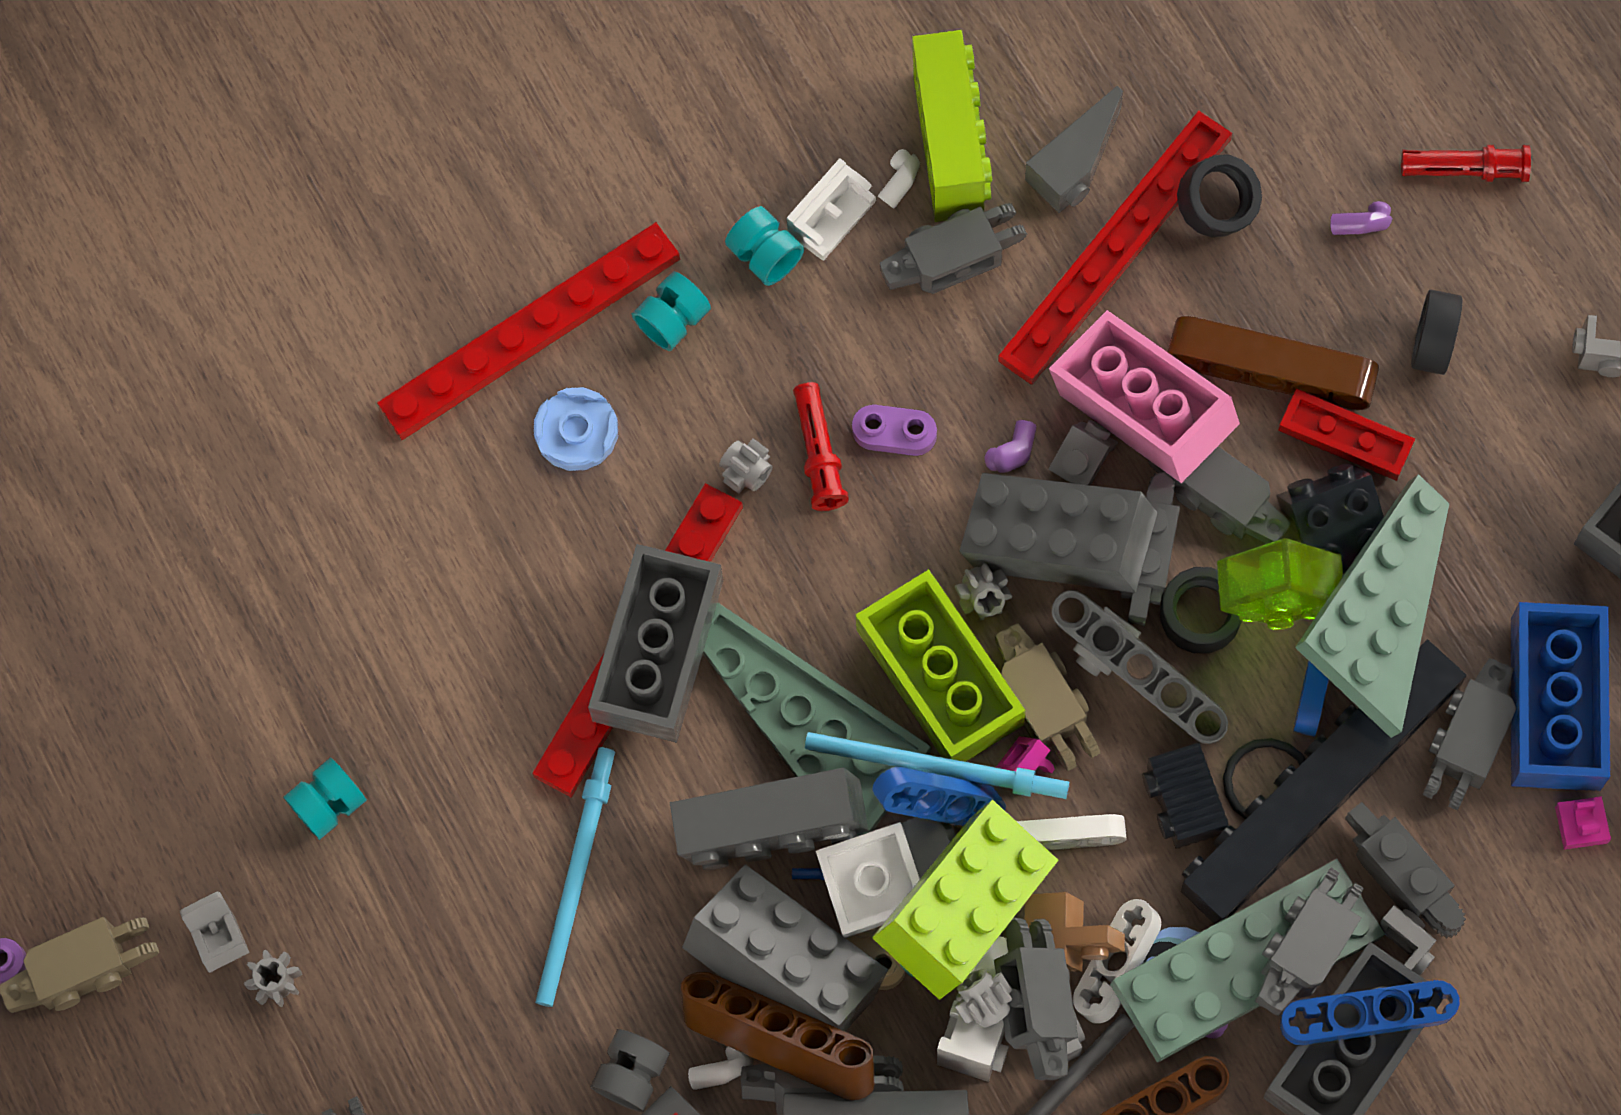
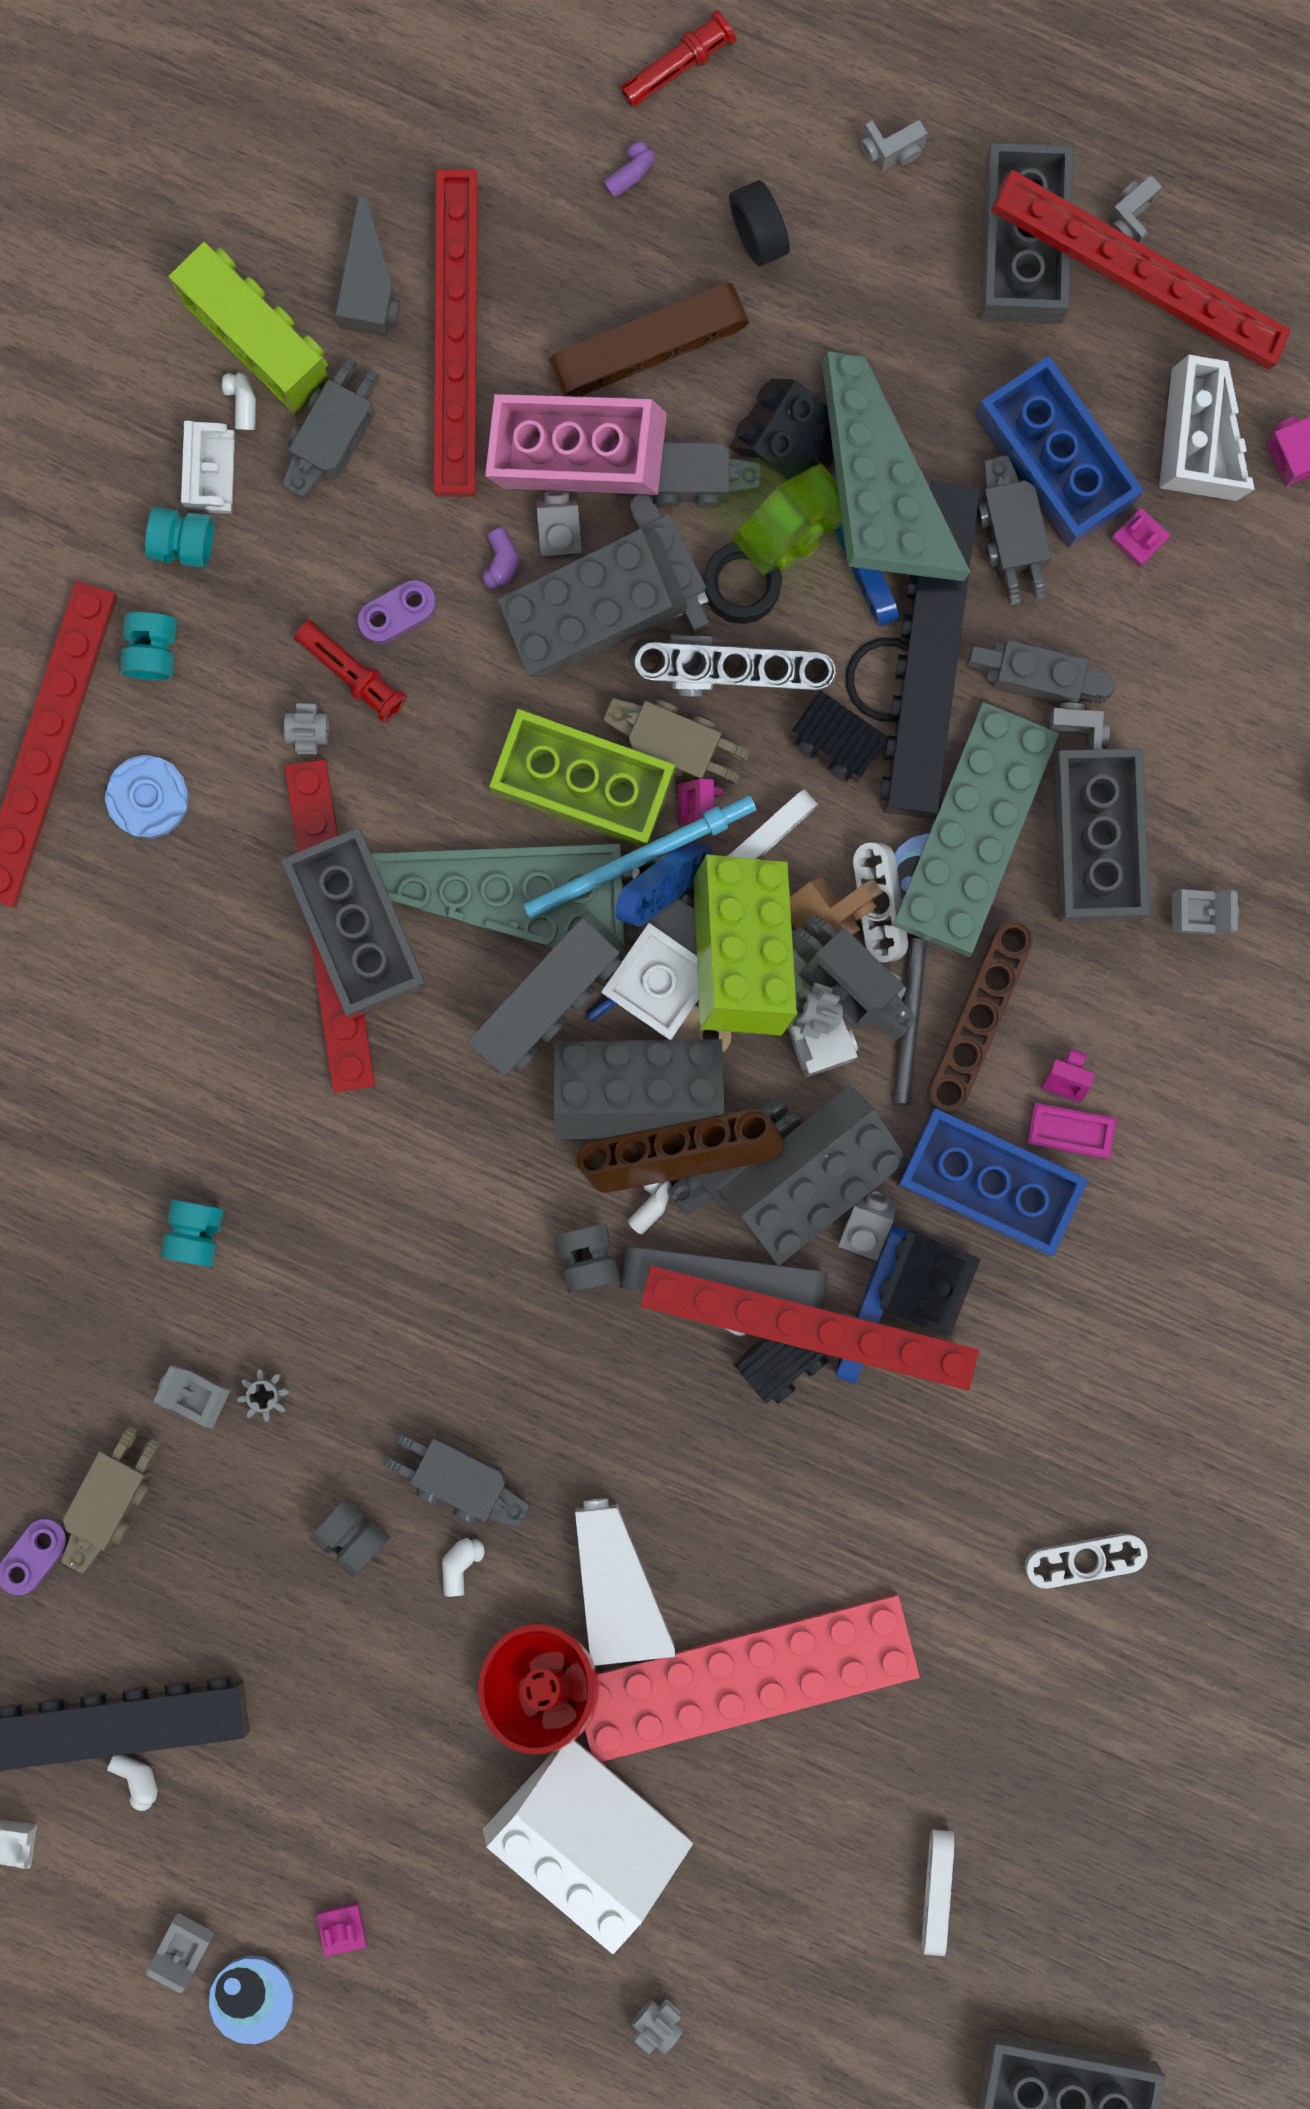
camera: 50 degrees left, 15 degrees up
(595, 794) = (393, 1070): medium azure bar -> none
(983, 591) = (567, 692): light grey gear -> none
(1244, 180) = (527, 211): black tyre -> none
(1309, 946) = (1017, 786): hinge -> none
(1346, 434) = (748, 358): red plate -> none
(1370, 1018) = (1098, 804): blue beam -> none

